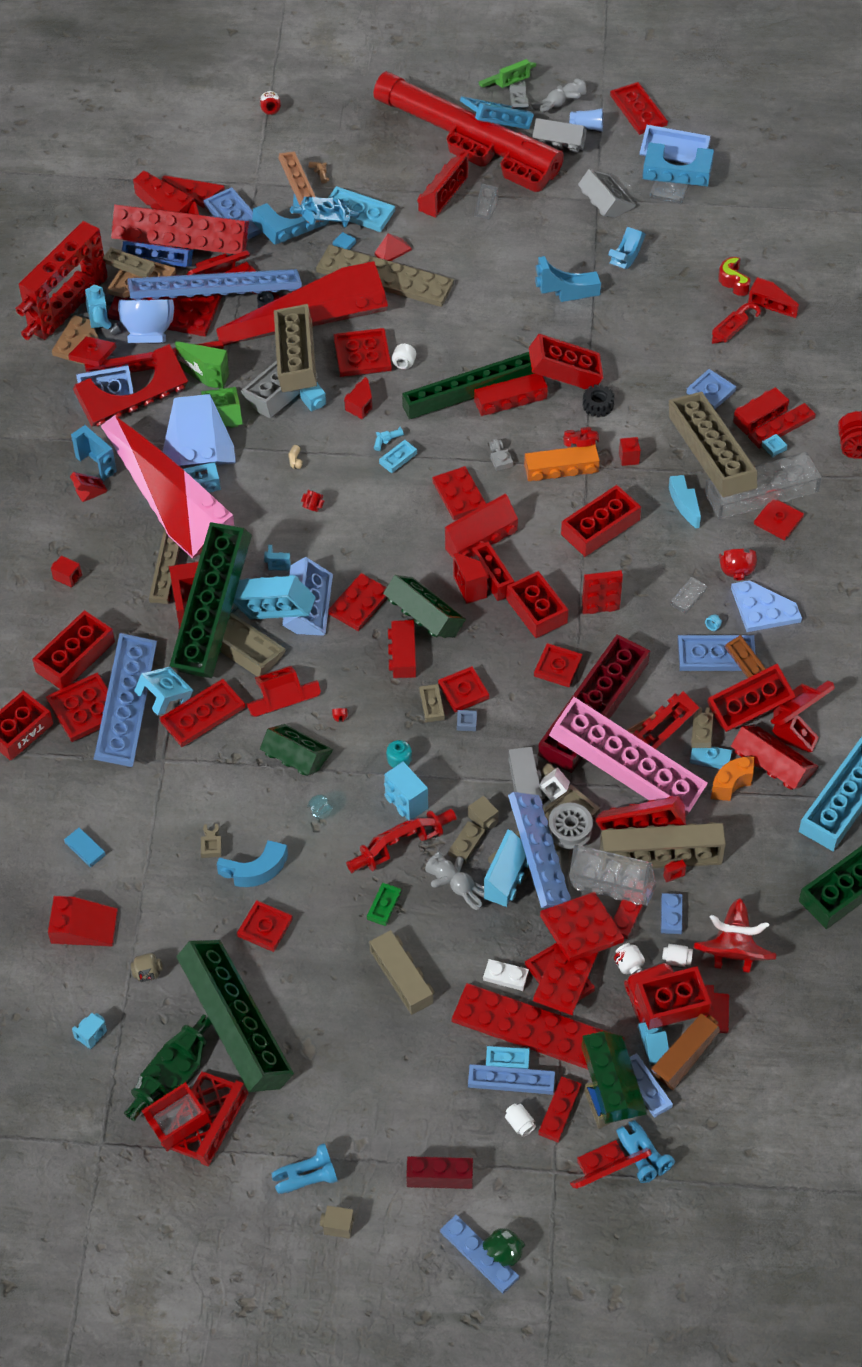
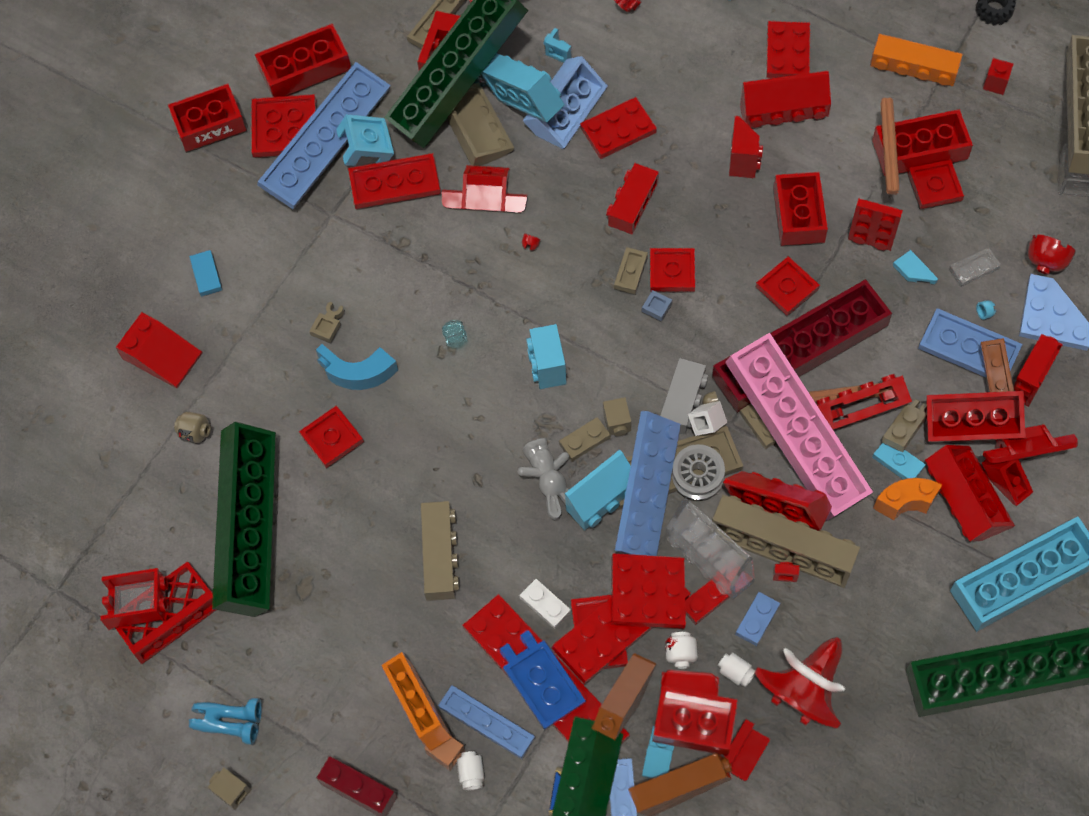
camera: 30 degrees right, 10 degrees up
(90, 1030) = (105, 467): medium azure brick -> none
(170, 1067) = (157, 545): dark green plate -> none
(295, 749) = (464, 260): dark green slope -> none
(384, 904) = (461, 468): green plate -> none
(391, 836) = (505, 398): red plate -> none
(398, 752) = (564, 312): teal head -> none
(424, 606) = (677, 161): brick -> none
(452, 1084) = (416, 701): none -> orange brick
(490, 1113) = (447, 753): none -> nougat brick
(498, 574) = (774, 151): red brick -> none
(500, 459) = (854, 29): light grey plate -> none
(507, 1057) = (495, 697): medium azure plate -> none
(537, 1027) = (541, 681): none -> blue tile
(559, 1109) = (519, 779): red plate -> none
(581, 438) = (951, 40): red plate -> none
(581, 530) = (889, 145): none -> nougat axle
(593, 774) = (757, 426): none -> dark tan plate
(610, 1005) = (624, 696): none -> dark orange slope
(626, 547) = (935, 184): none -> red plate
(644, 615) = (914, 269): none -> medium azure tile
(685, 500) = (1030, 156): medium azure slope -> none
(774, 643) = (1037, 367): none -> red window

